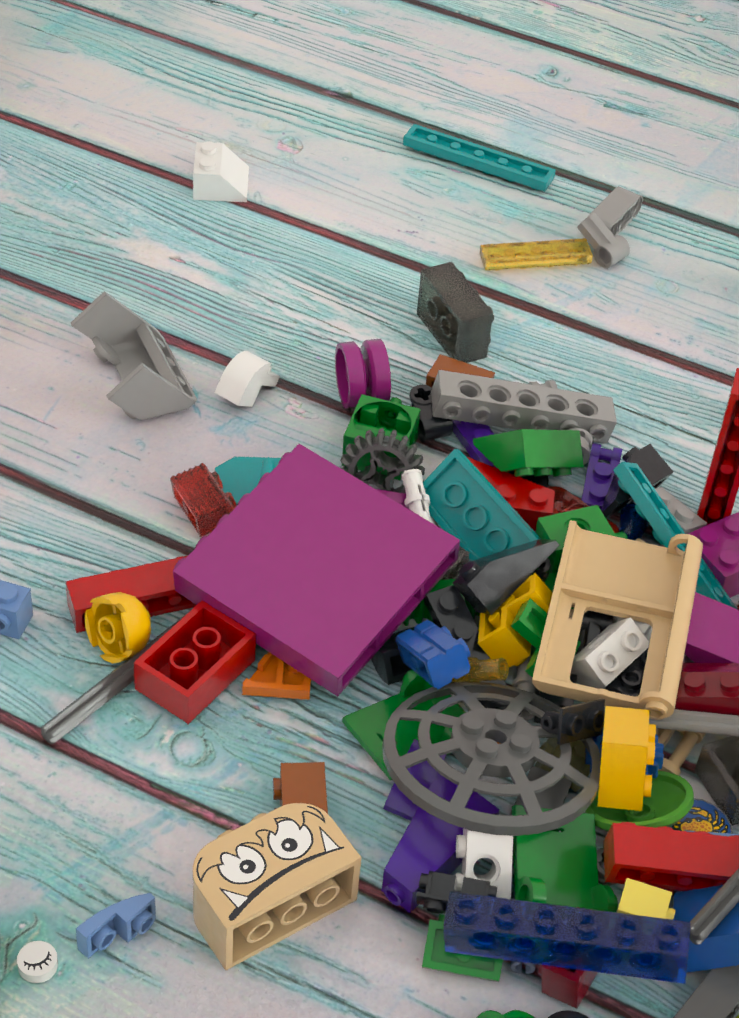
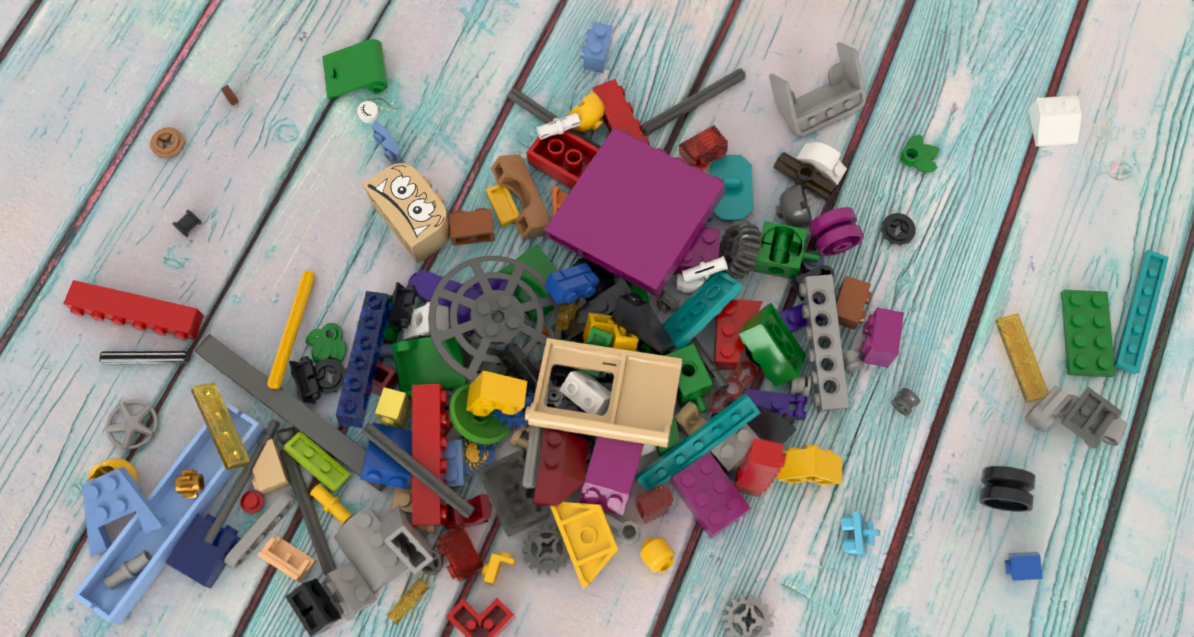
camera: 90 degrees right, 25 degrees up
(113, 504) = (693, 101): none -> dark grey axle
(153, 644) = (558, 126): none -> white pin
(220, 732) = (513, 174): none -> medium nougat arch
(244, 297) = (921, 154): none -> green plate
(257, 763) = (502, 204): none -> yellow tile
(264, 401) = (794, 169): none -> dark brown piece
(315, 411) = (794, 207): none -> dark grey cylinder
(352, 322) = (907, 227): none -> black gear
(454, 313) = (922, 290): clear smoke brick -> none
(502, 202) = (1087, 333): none -> green plate
(517, 350) = (882, 337): none -> magenta brick
(596, 355) = (905, 401): none -> dark grey wheel
(618, 204) = (1084, 413): none -> dark grey plate
(694, 446) = (811, 466): none -> yellow brick
(708, 281) = (1007, 488): none -> black wheel

